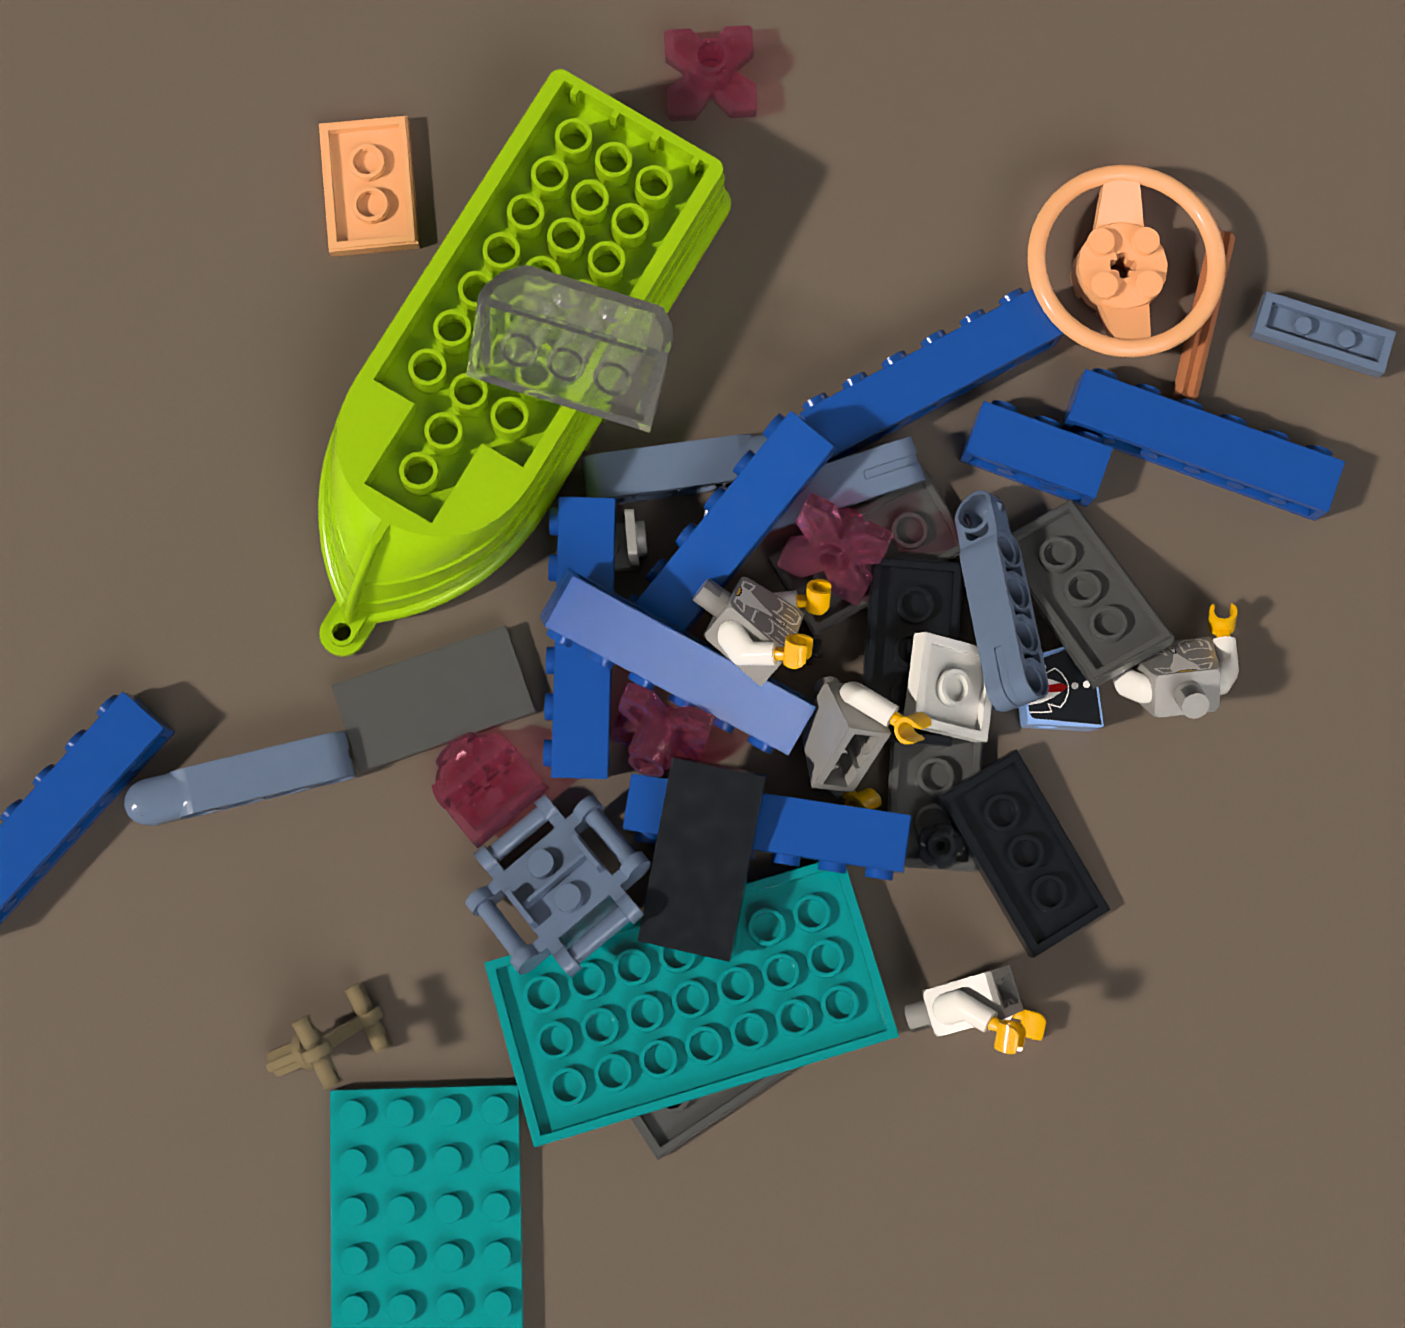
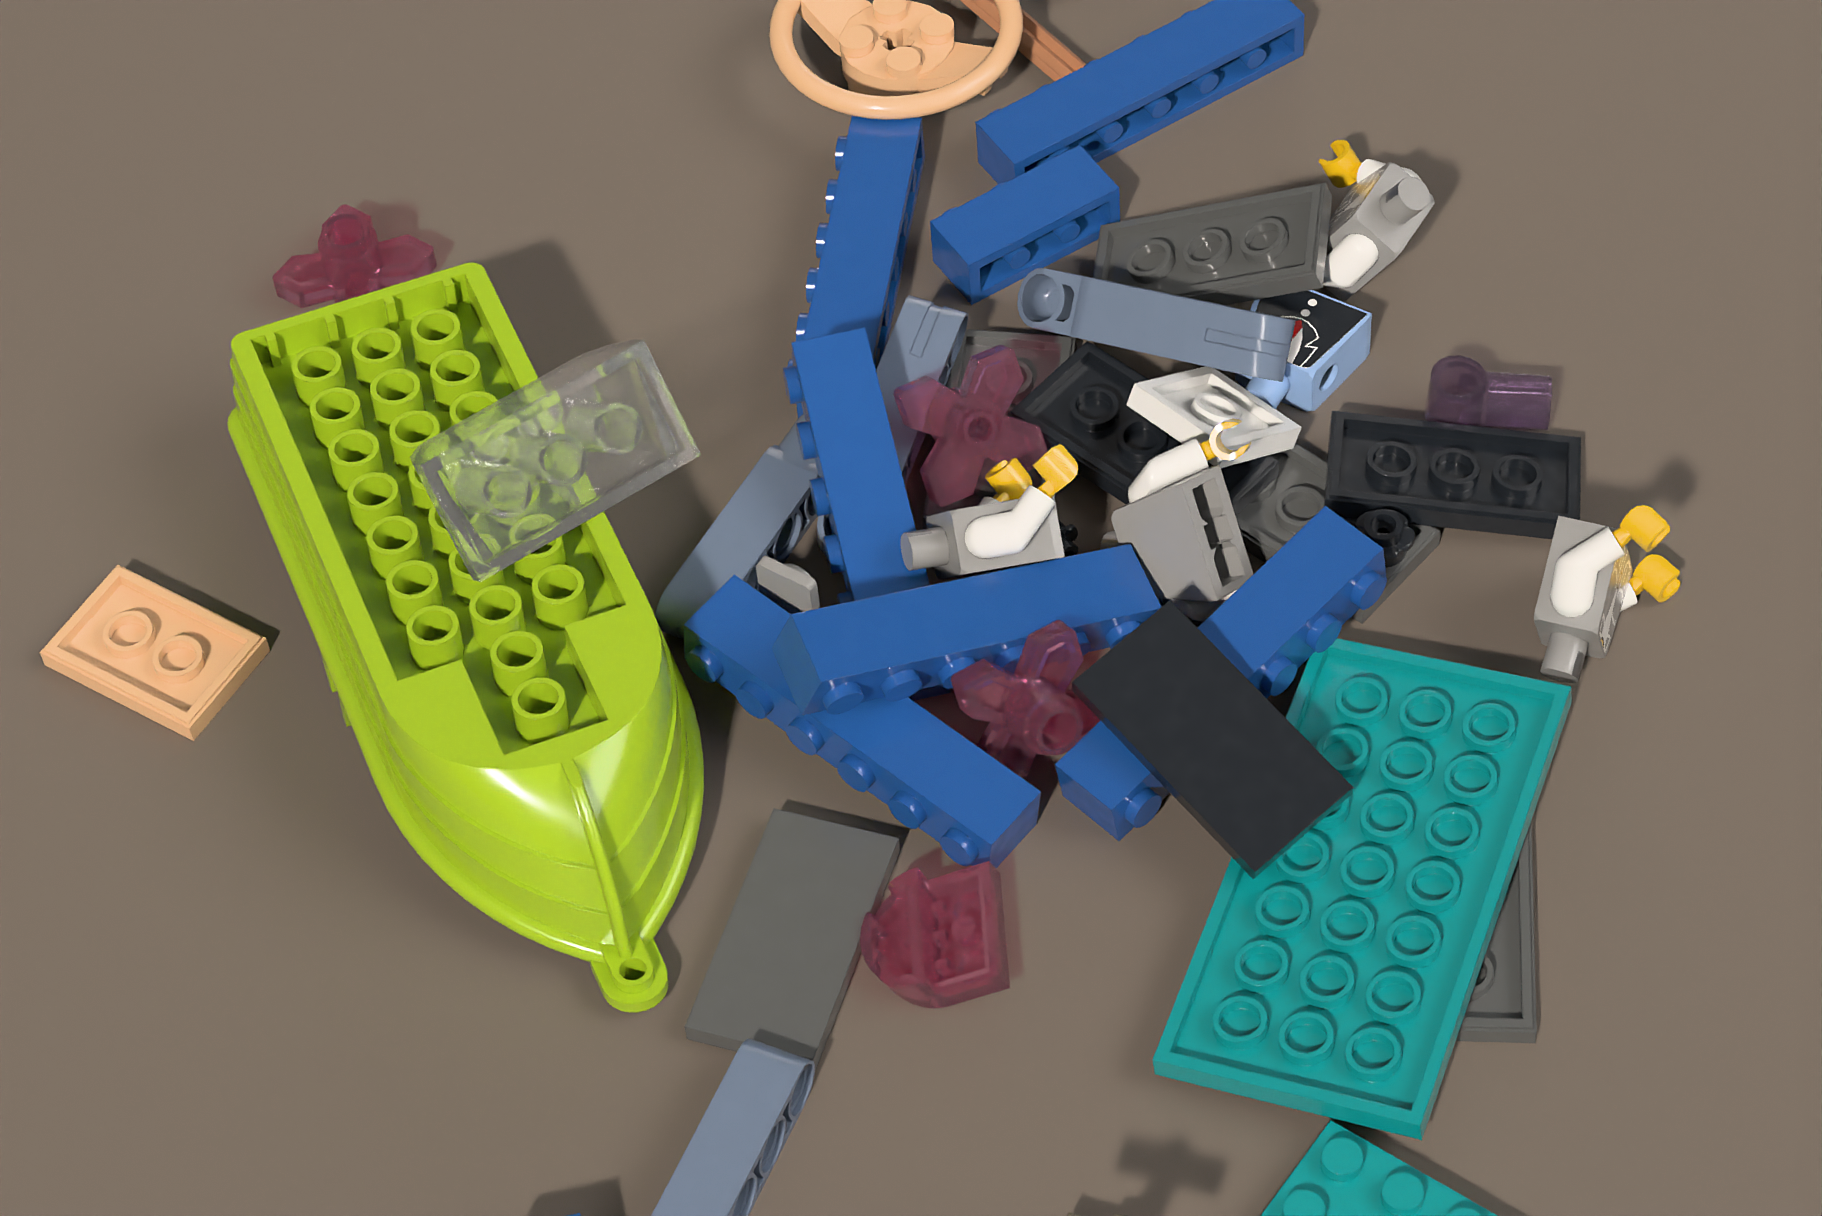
camera: 45 degrees left, 30 degrees down
(559, 886) = (1124, 913): sand blue brick -> none
(1101, 839) = (1471, 396): none -> clear purple piece

